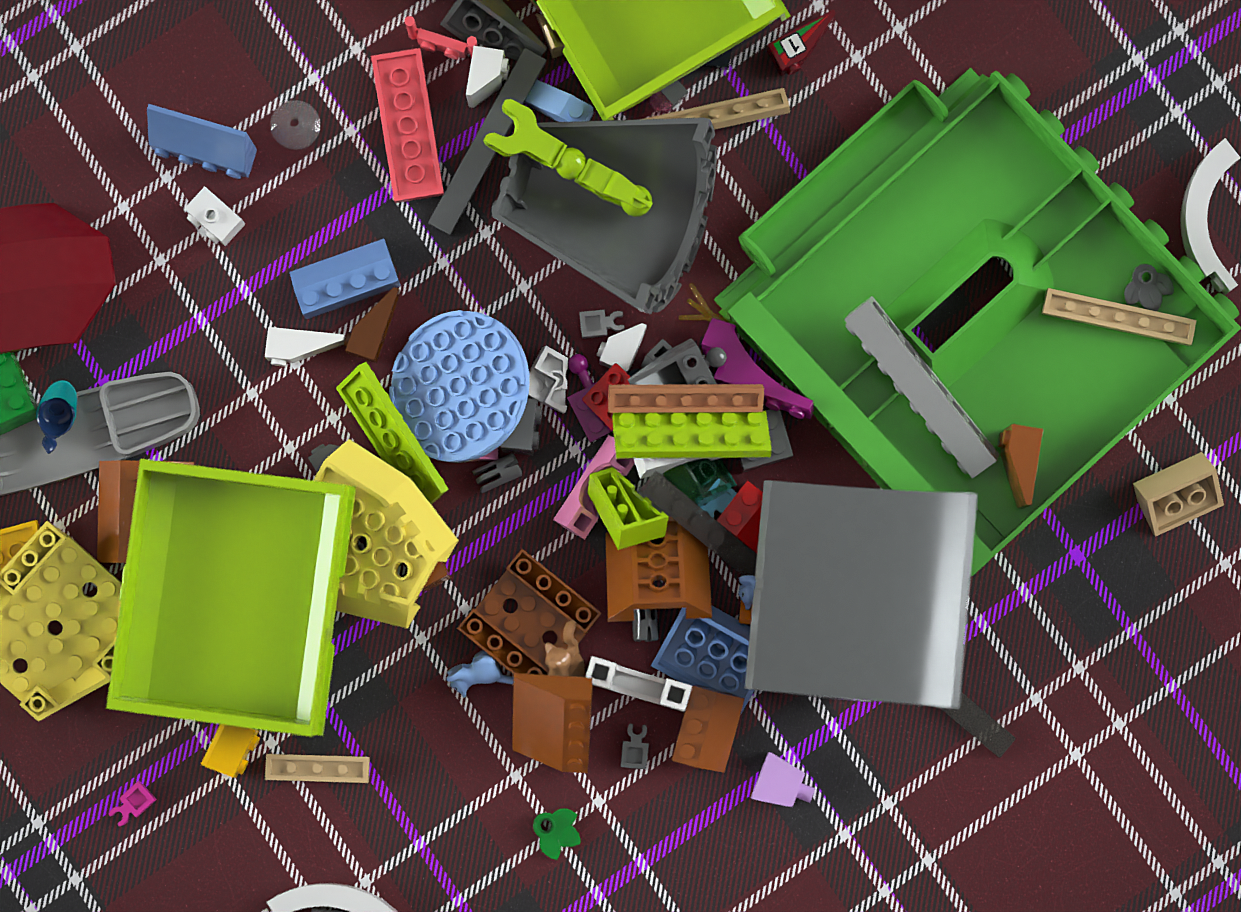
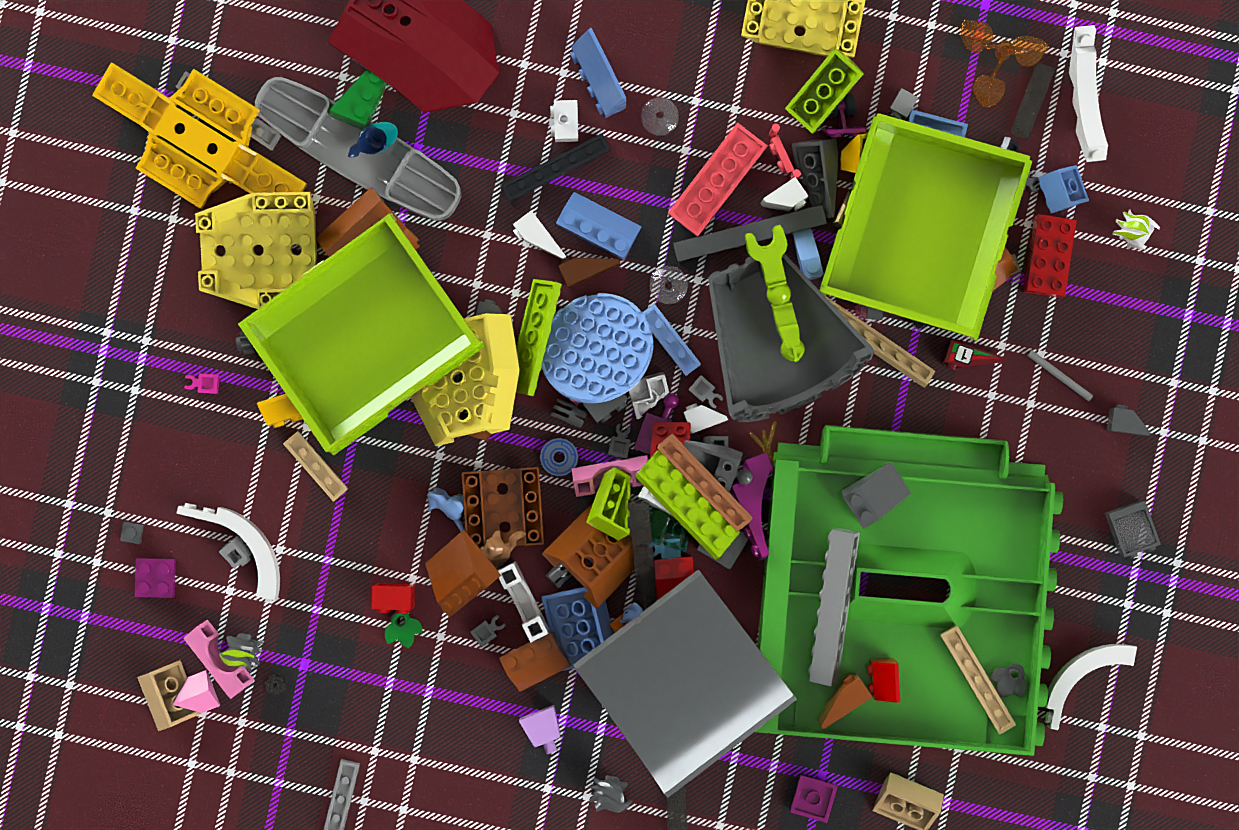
camera: 45 degrees right, 5 degrees up
(133, 723) = (244, 344): none -> dark grey gear
(250, 268) = (555, 167): none -> black tile
(460, 251) = (675, 277): none -> clear dish
(516, 810) = (393, 597): none -> red brick
(517, 515) = (551, 465): none -> sand blue tile
(521, 310) = (671, 340): none -> light blue plate
(574, 452) = (619, 445): none -> dark grey plate
(850, 249) = (876, 494): none -> dark grey slope
(906, 776) = (610, 794): none -> dark grey hair
(1037, 404) = (884, 680): none -> red slope
(1091, 581) = (813, 798): none -> magenta plate
(1110, 41) = (1134, 531): none -> window

